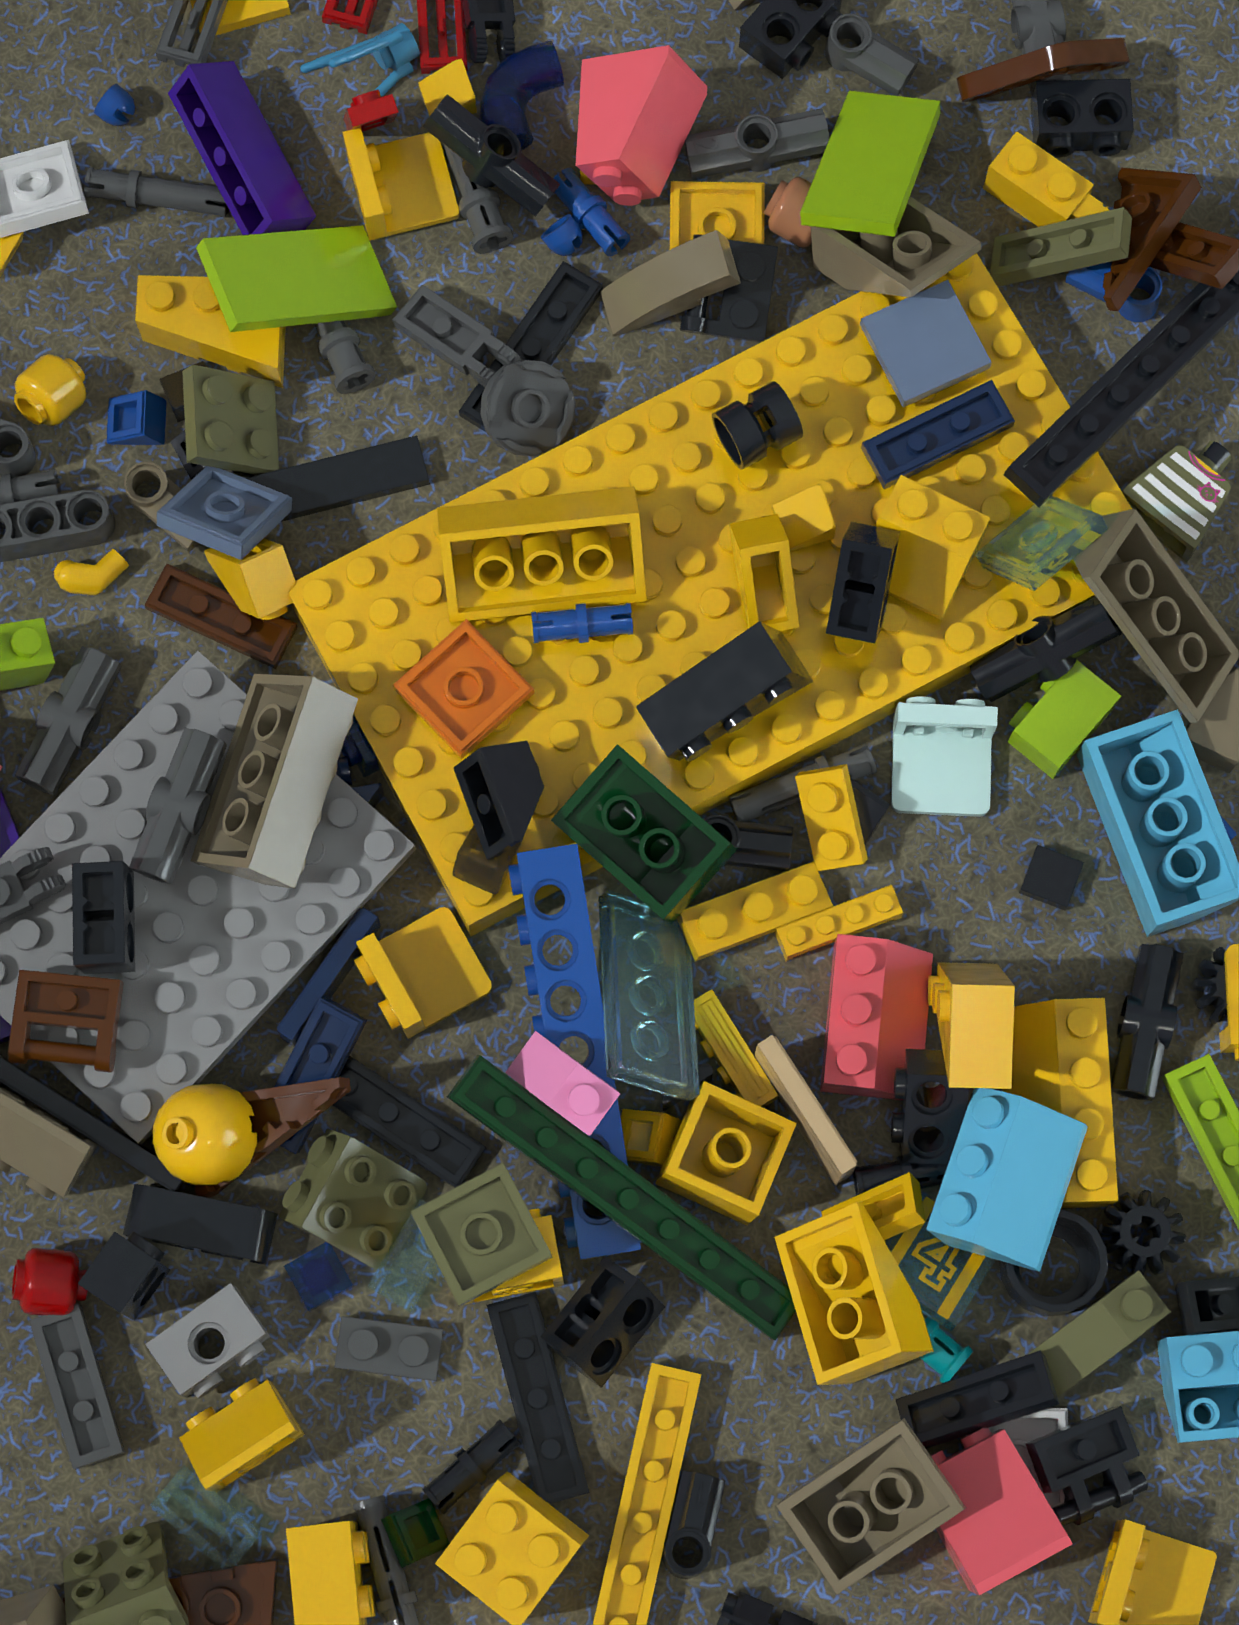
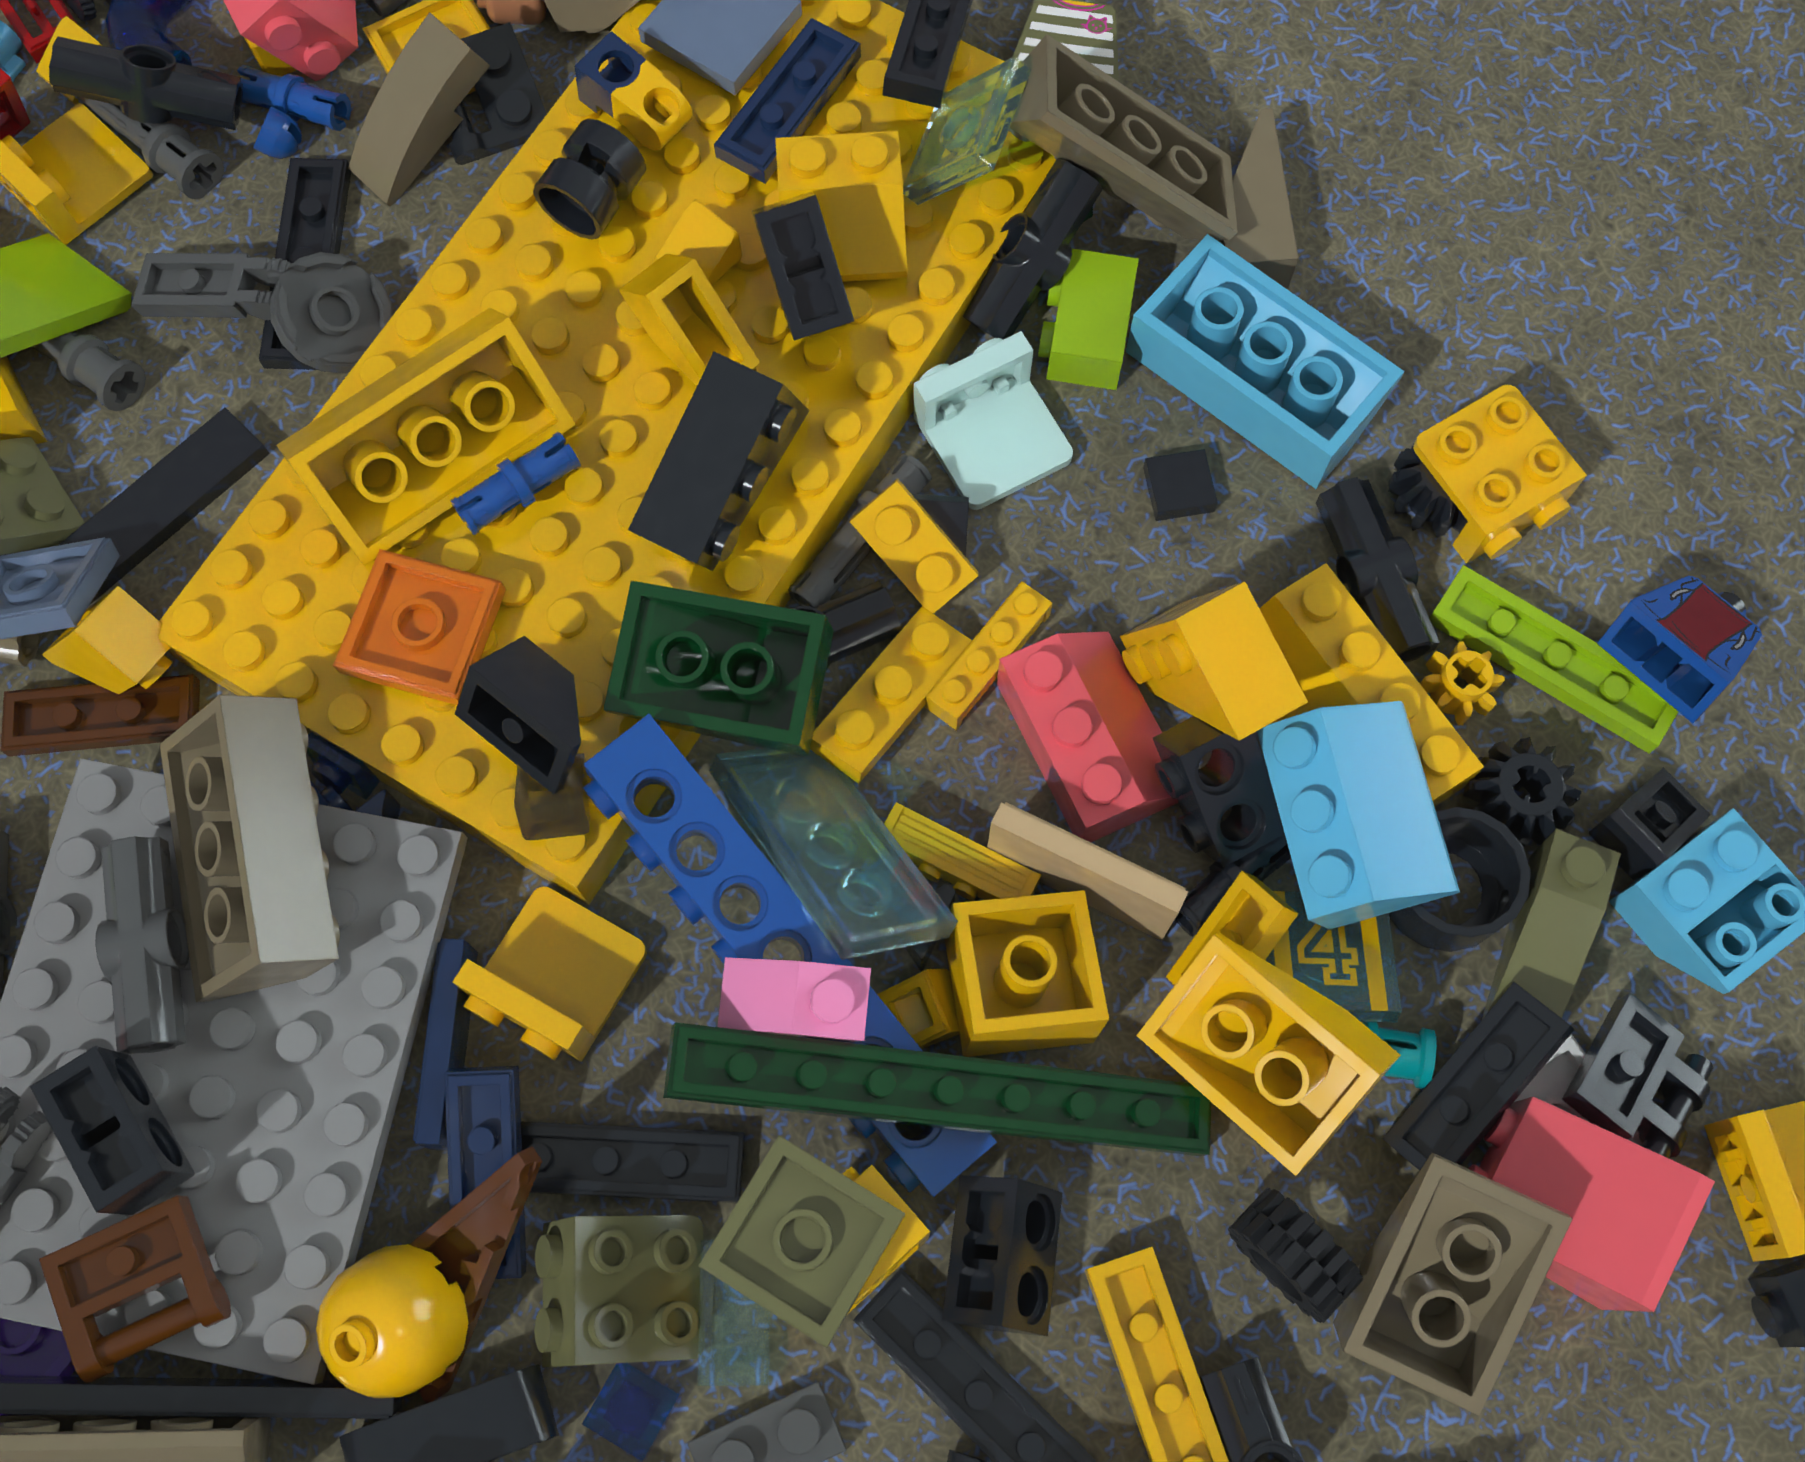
camera: 30 degrees left, 5 degrees down
(787, 1432) = (1295, 1254): none -> black tyre
(826, 372) = (632, 92): none -> leg
(1146, 1147) = (1469, 666): none -> yellow gear

